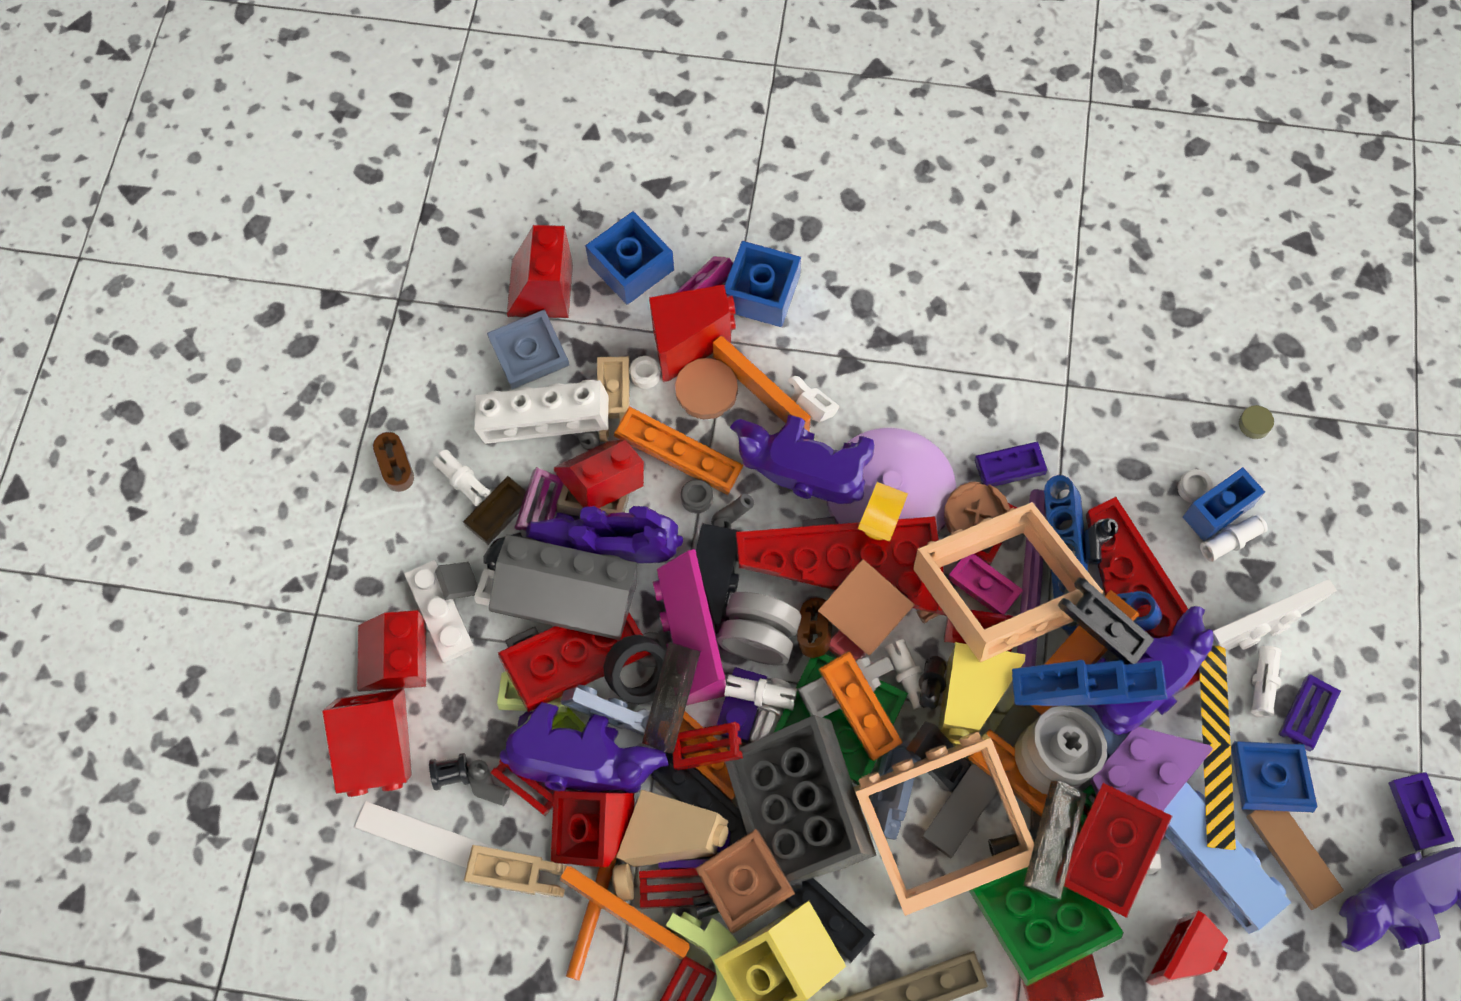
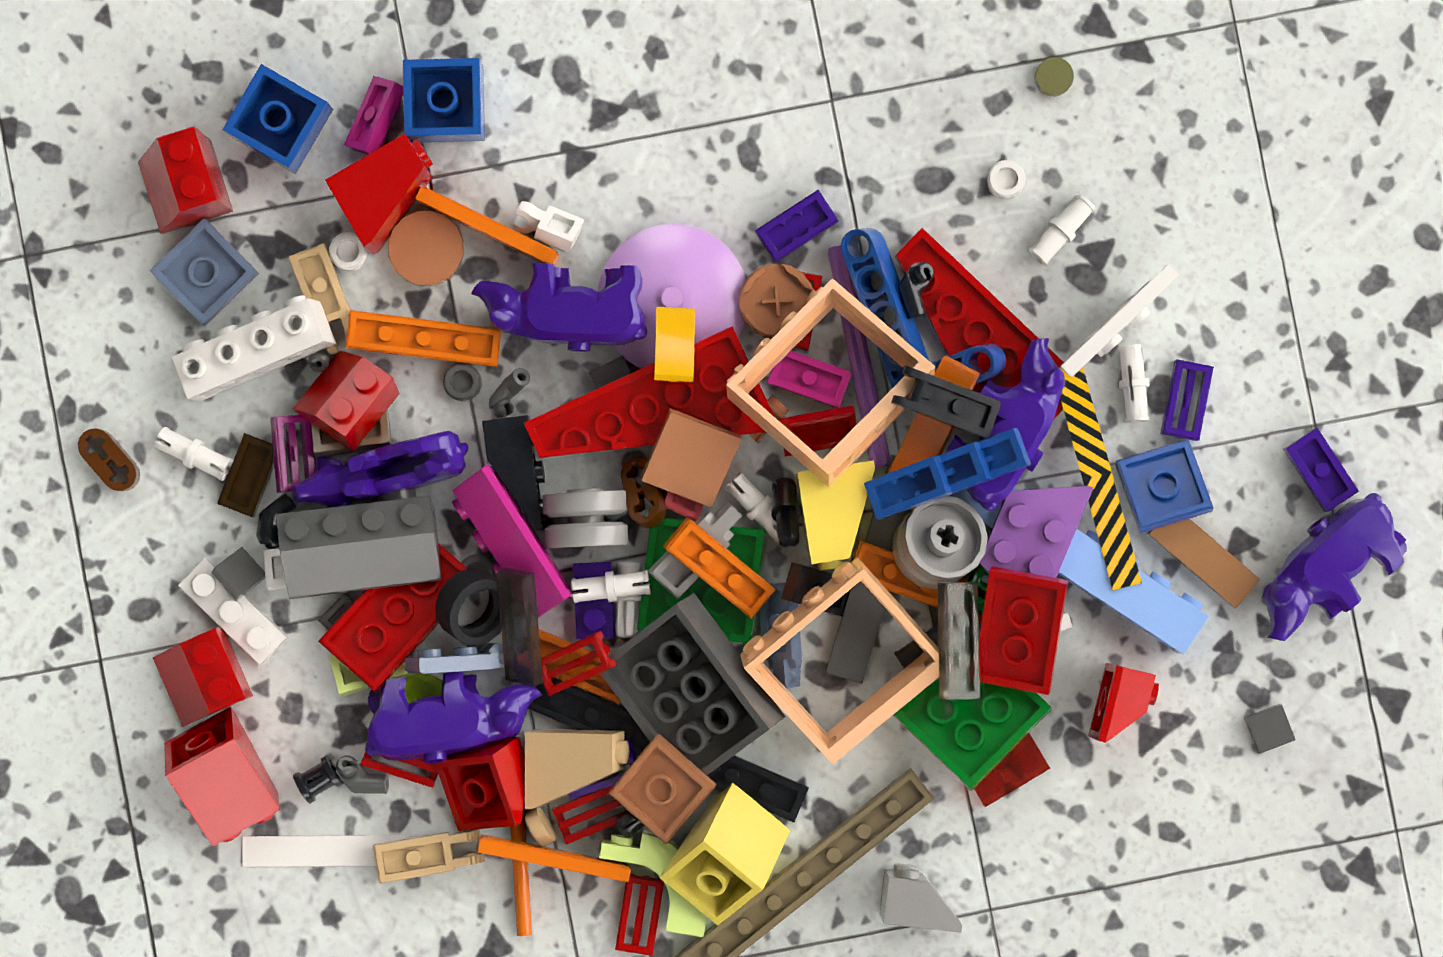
camera: 20 degrees left, 20 degrees up
(1223, 504) = (1040, 199): blue brick -> none

